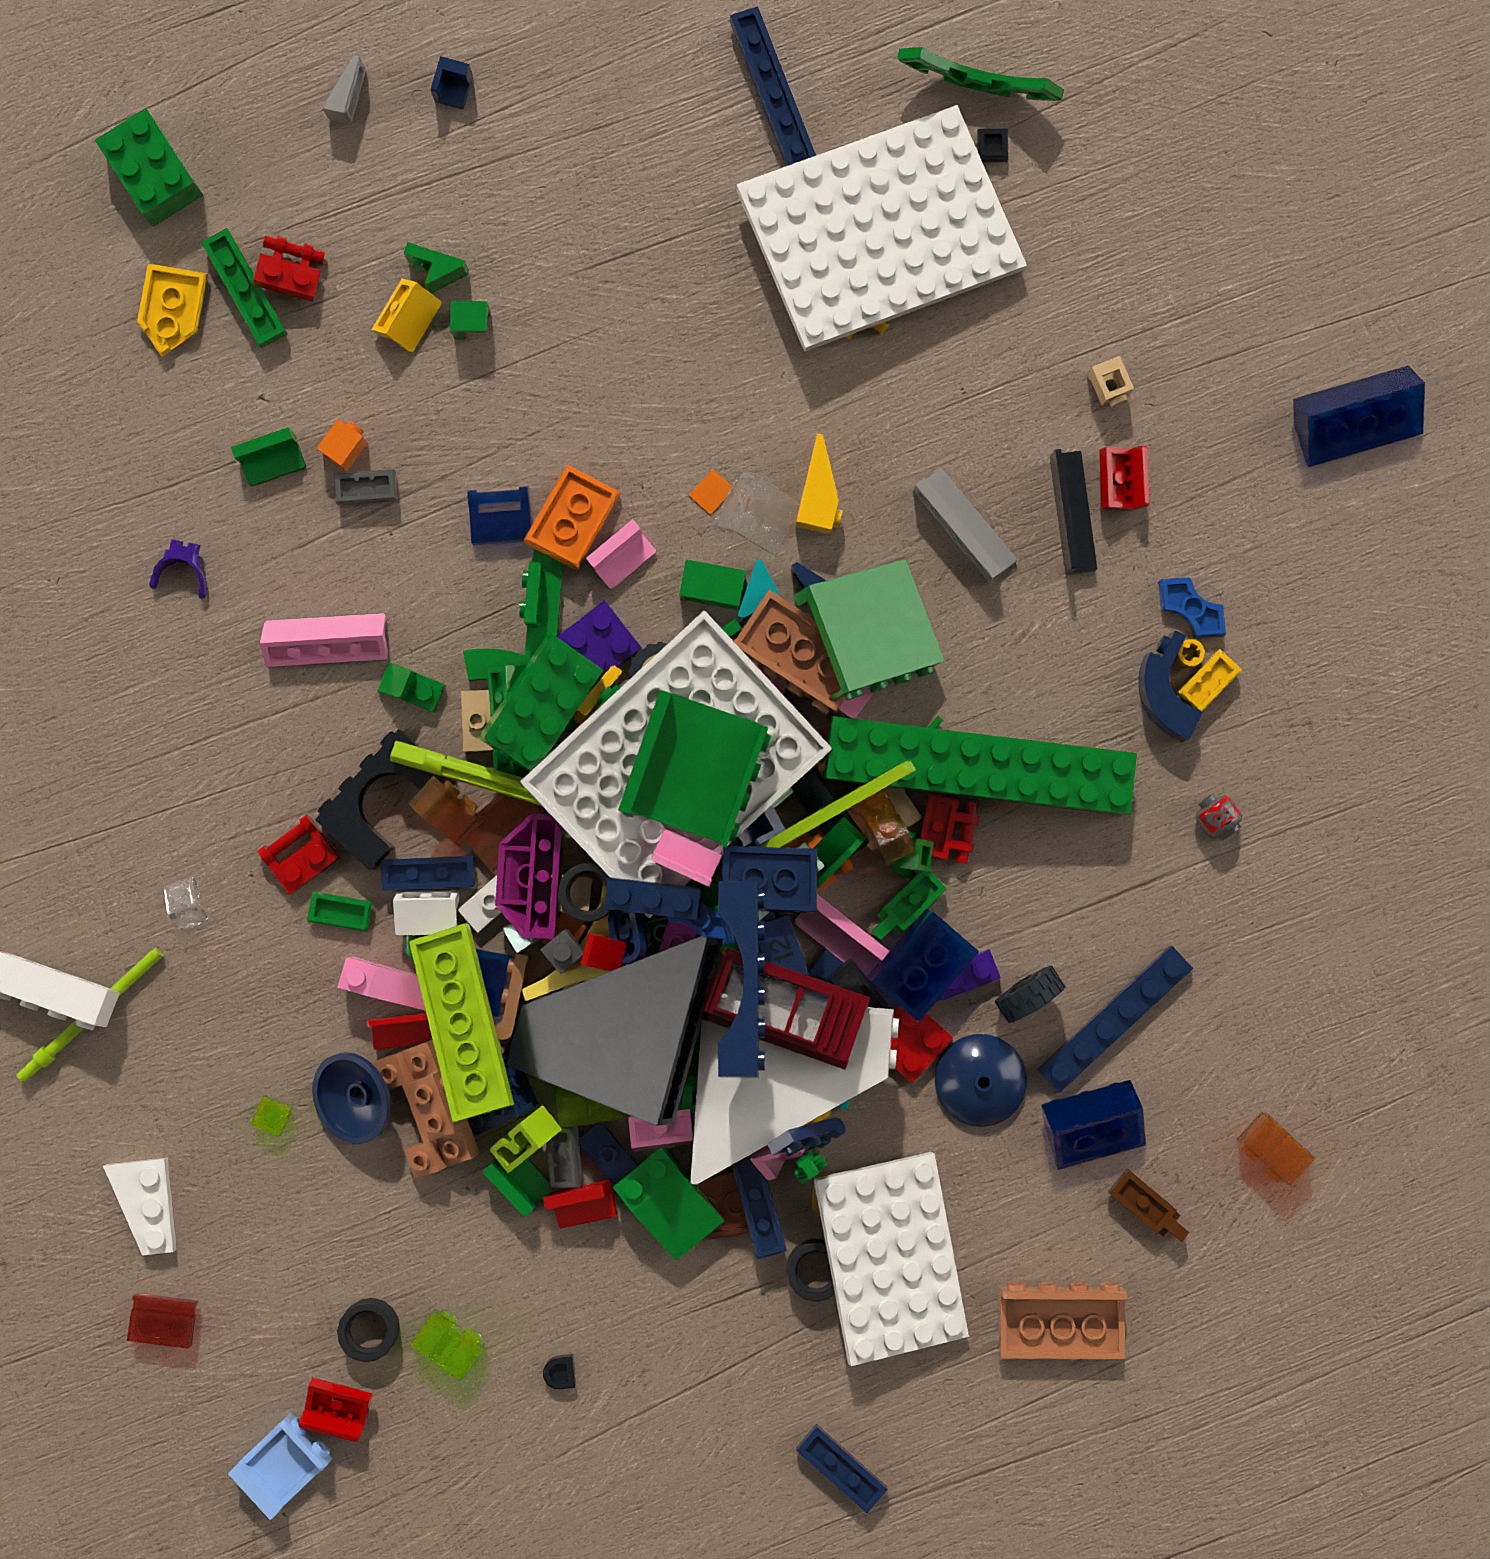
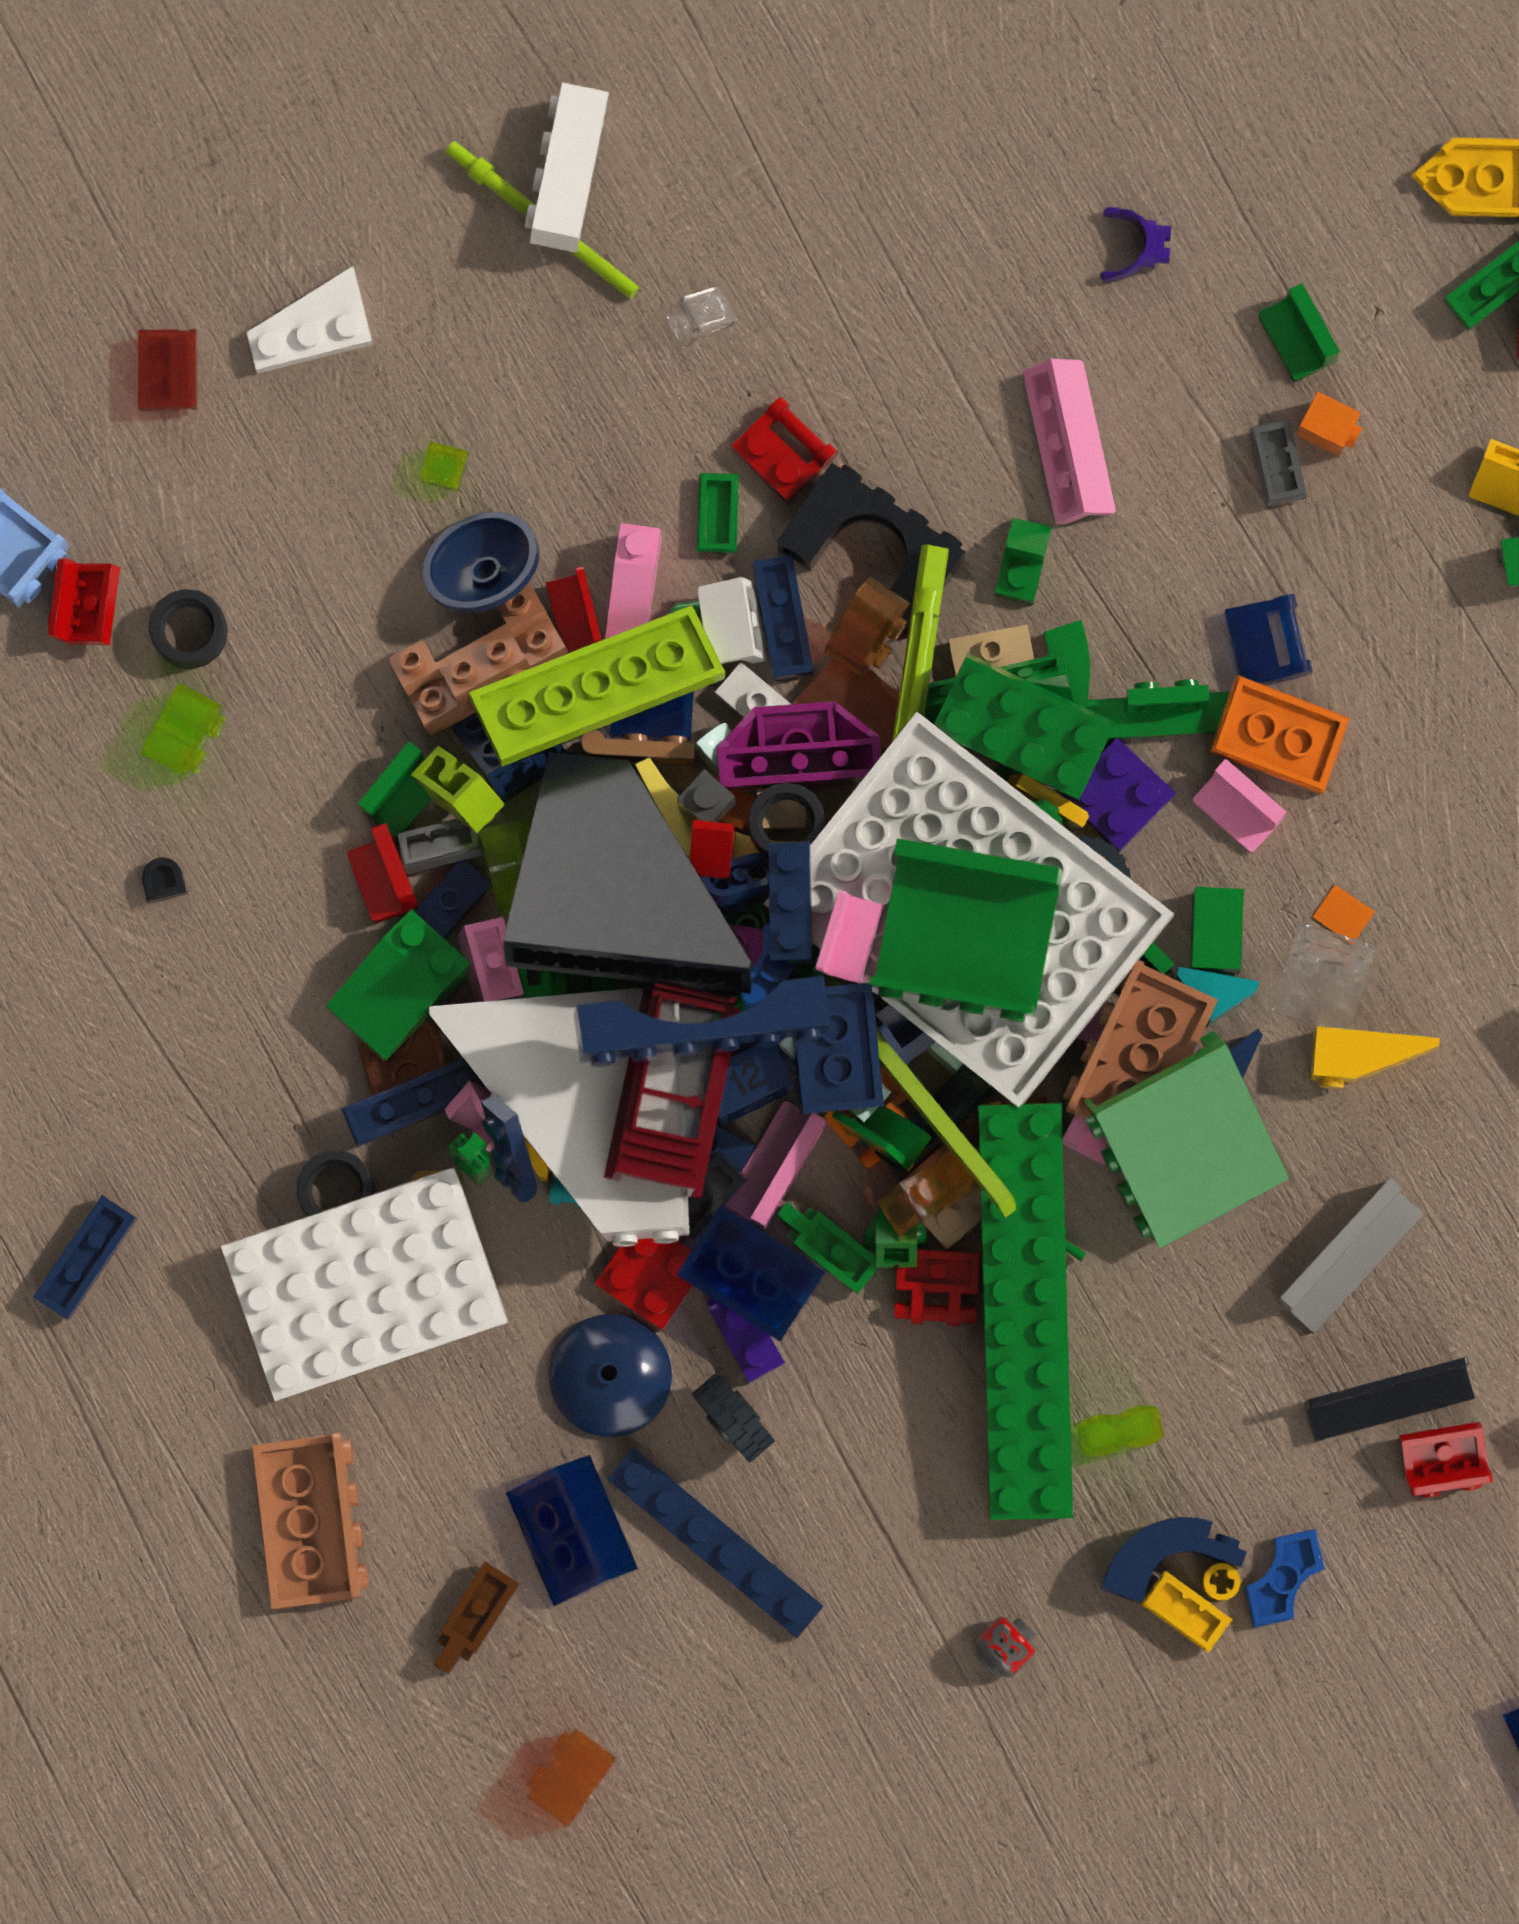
camera: 90 degrees right, 5 degrees down
(1072, 701) = (1107, 1433): none -> clear neon green brick

